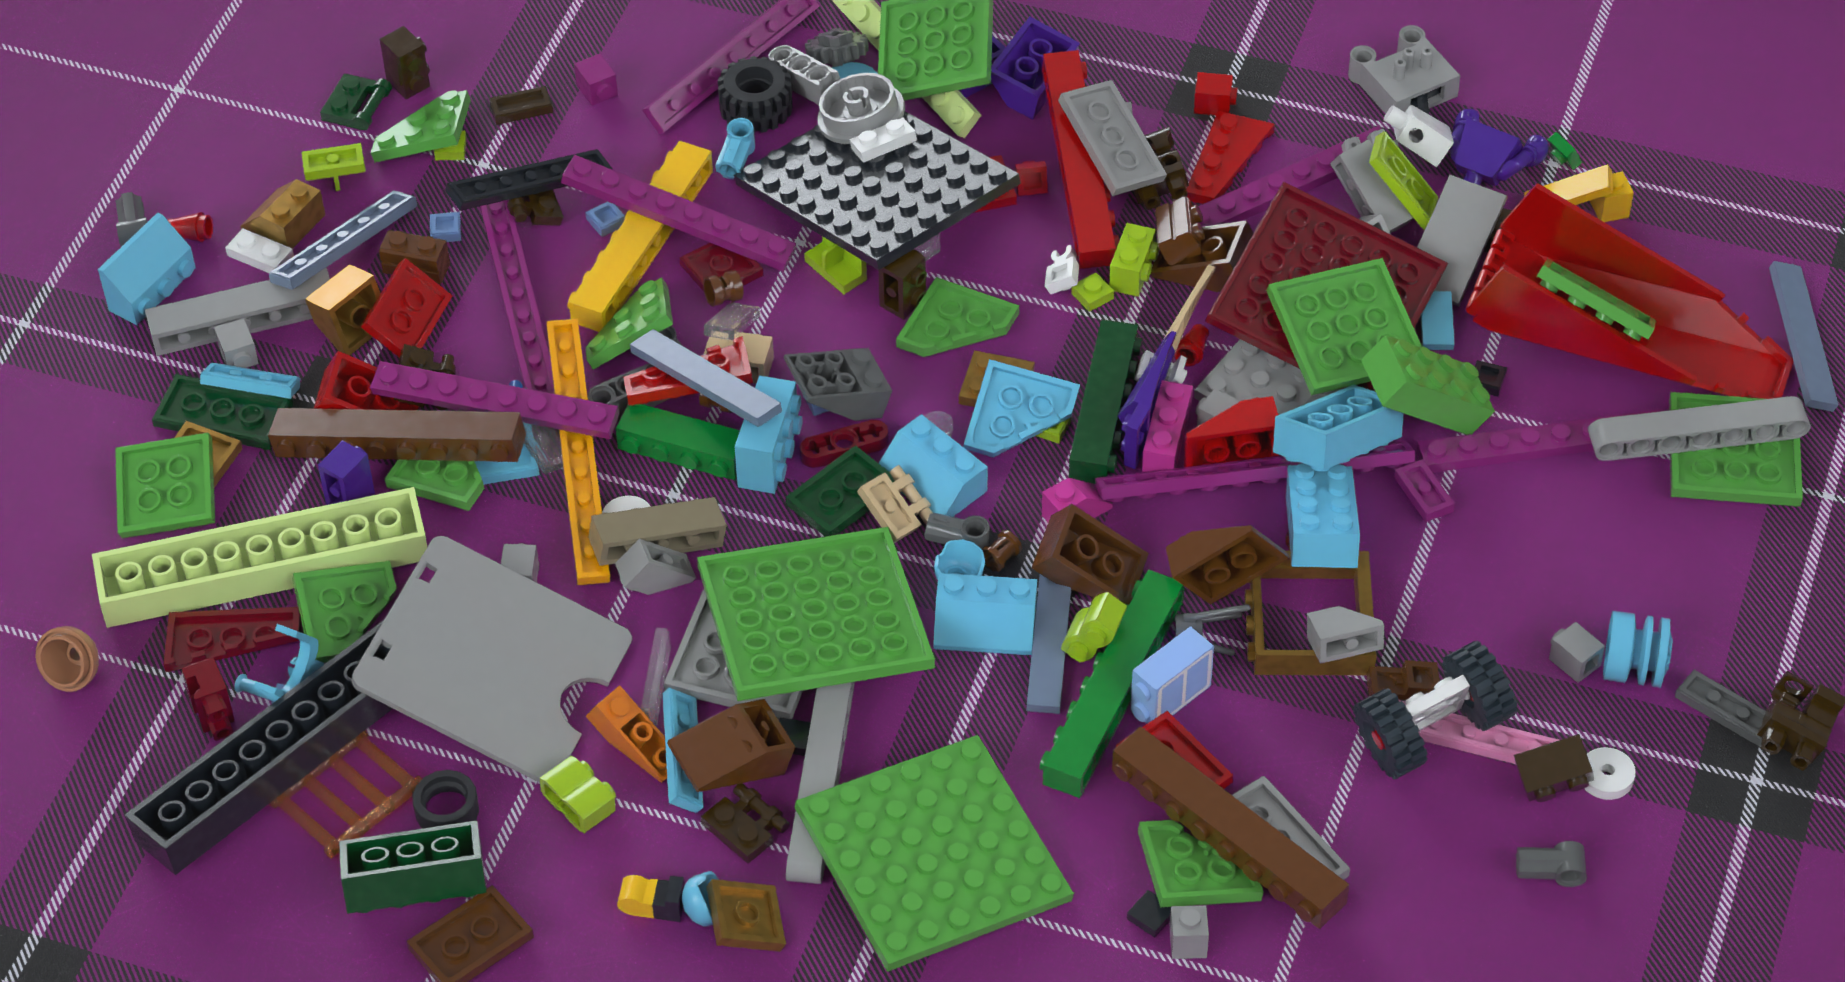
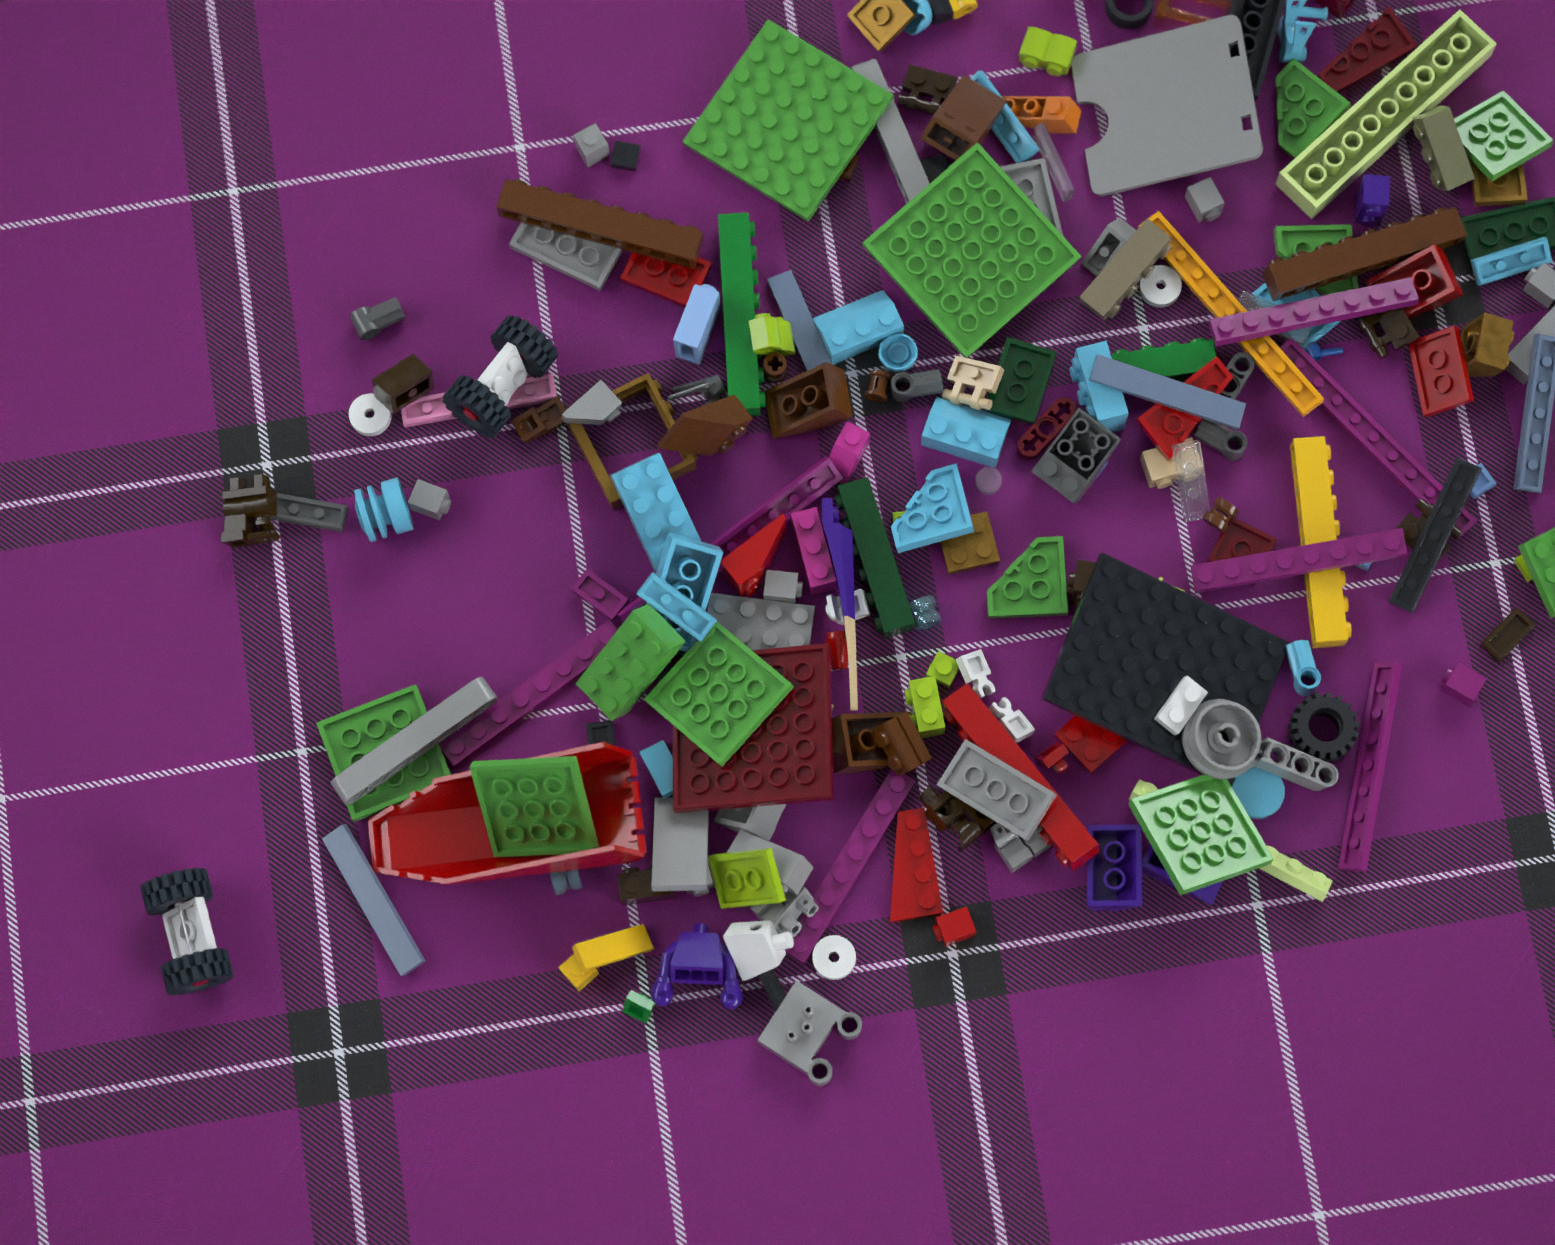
camera: 155 degrees right, 25 degrees up
(234, 489) = (1442, 148): none -> olive brick
(423, 251) = (1475, 430): reddish brown brick -> none
(644, 311) = (1264, 449): bright green plate -> none
(837, 47) = (1290, 815): dark grey gear -> none
(1051, 217) = (1013, 722): none -> white plate
(1081, 336) = (925, 612): none -> clear light blue wheel
(1190, 869) = (617, 184): bright green plate -> none
(1344, 121) = (838, 969): none -> white piece
(1353, 398) = (676, 606): none -> medium azure tile

